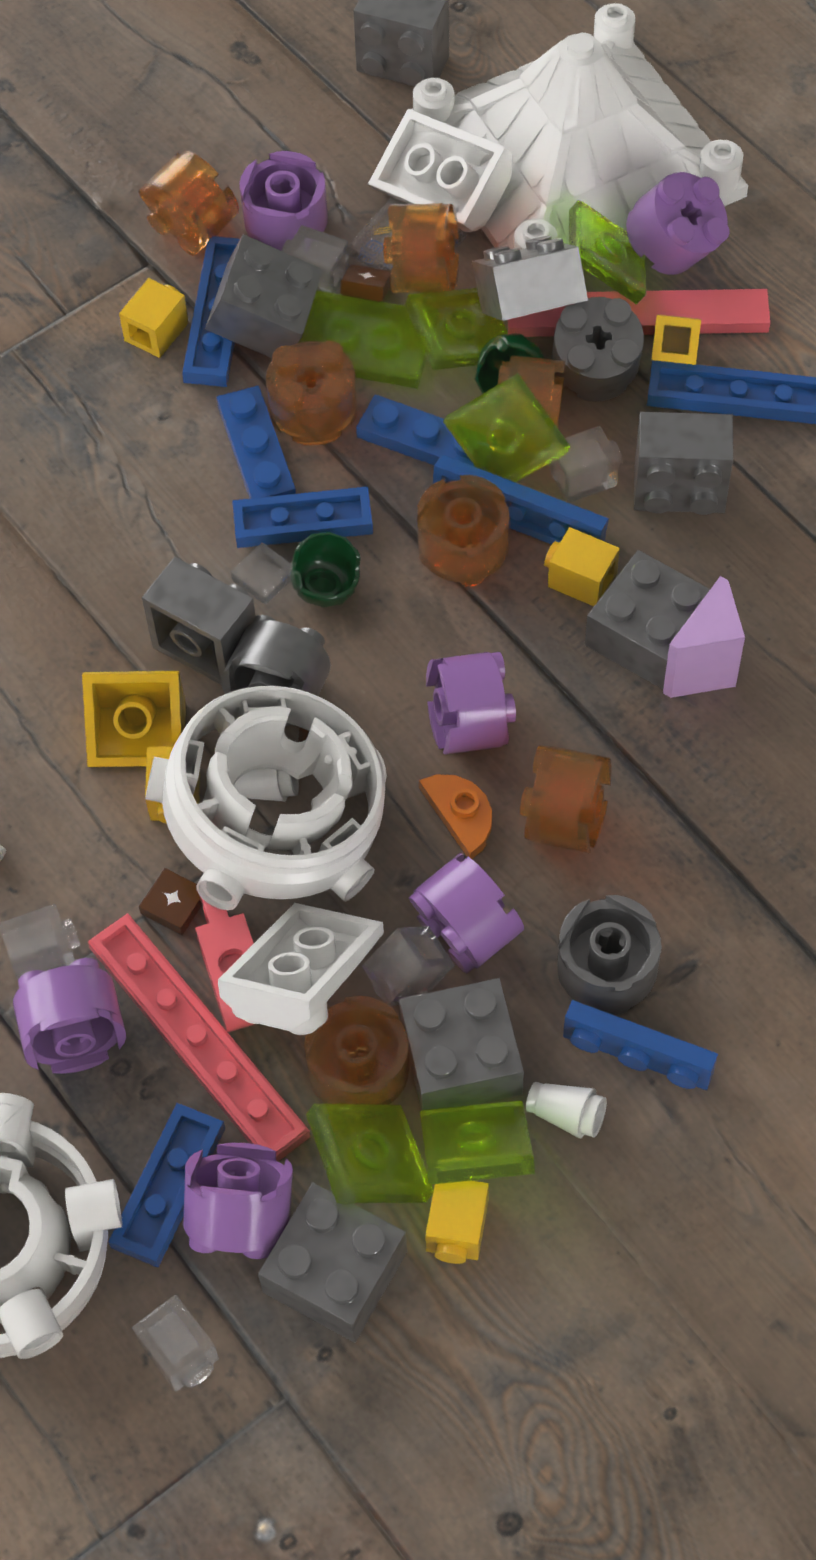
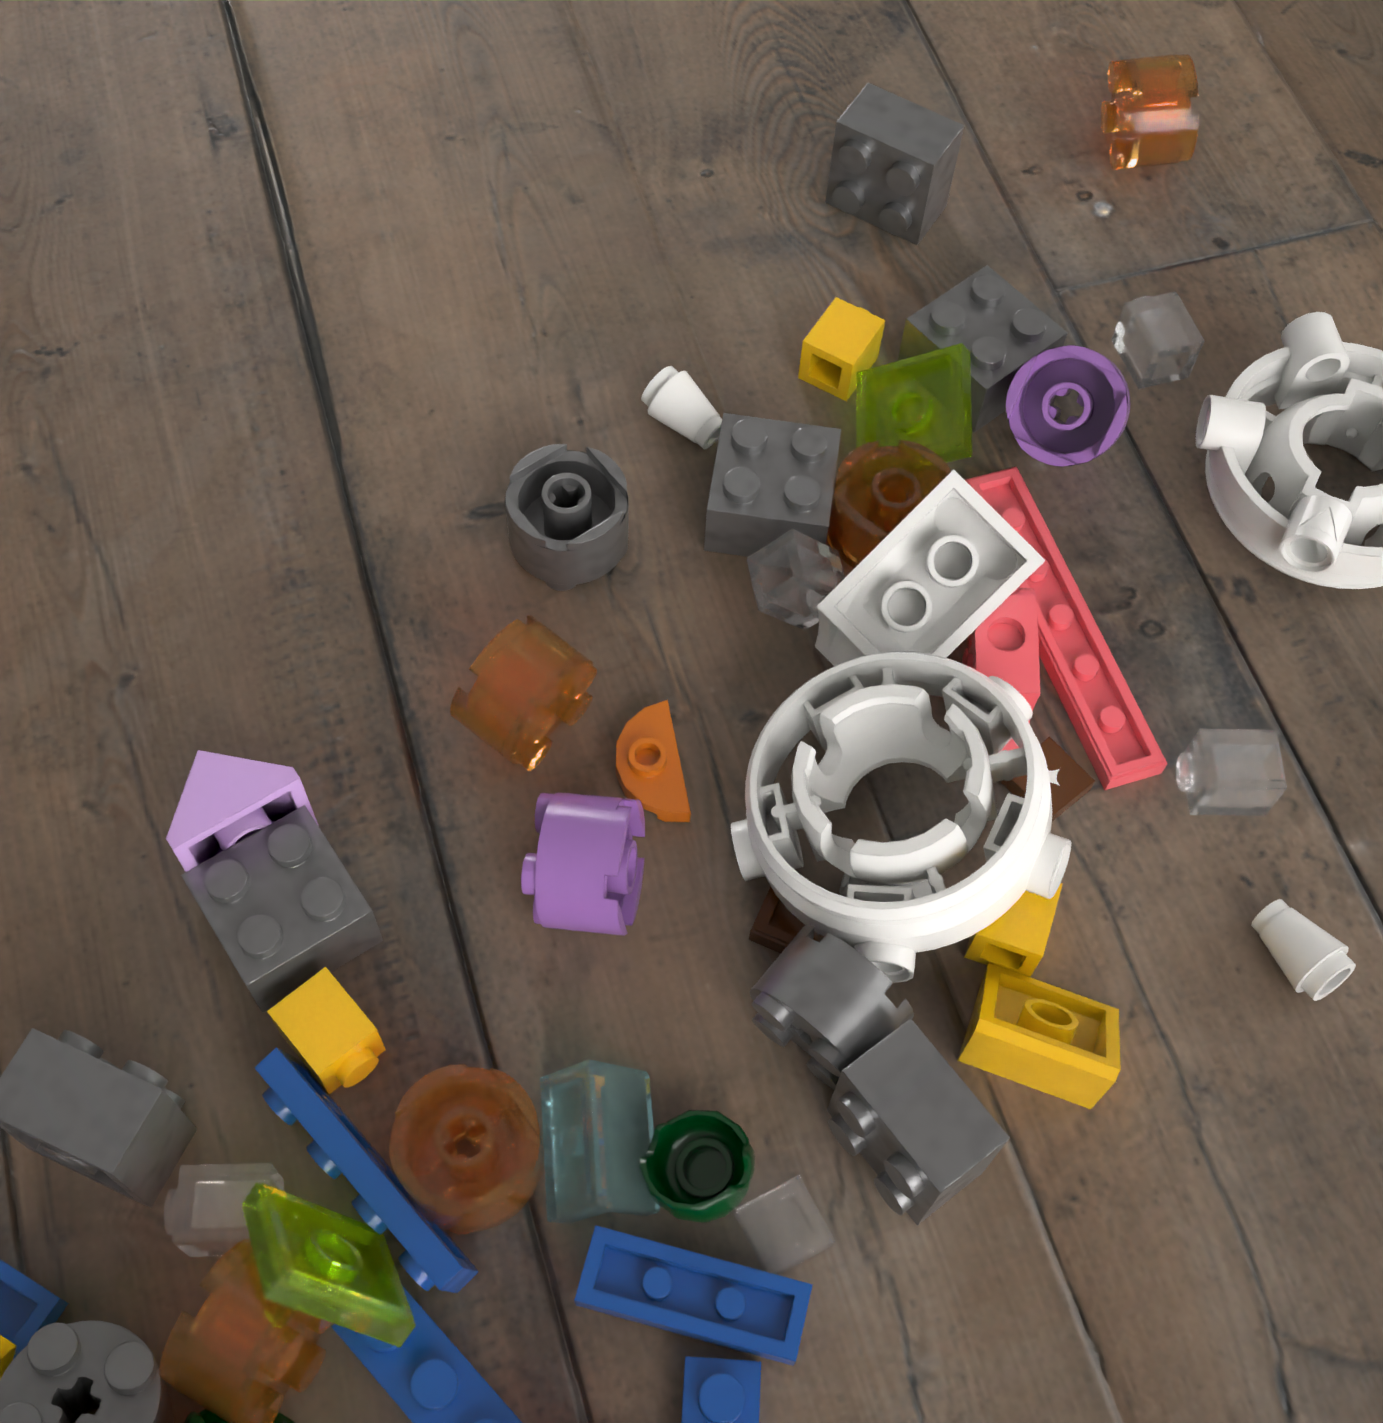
camera: 165 degrees left, 0 degrees up
(68, 1016) = (1215, 652): medium lavender brick -> none
(158, 1197) = (1128, 480): blue plate -> none
(392, 572) = (593, 1135): none -> clear light blue panel
(466, 911) = (710, 606): medium lavender brick -> none
(476, 1142) = (799, 378): clear neon green tile -> none
(482, 1428) = (893, 163): none -> flat silver brick
(639, 1046) = (567, 421): blue plate -> none

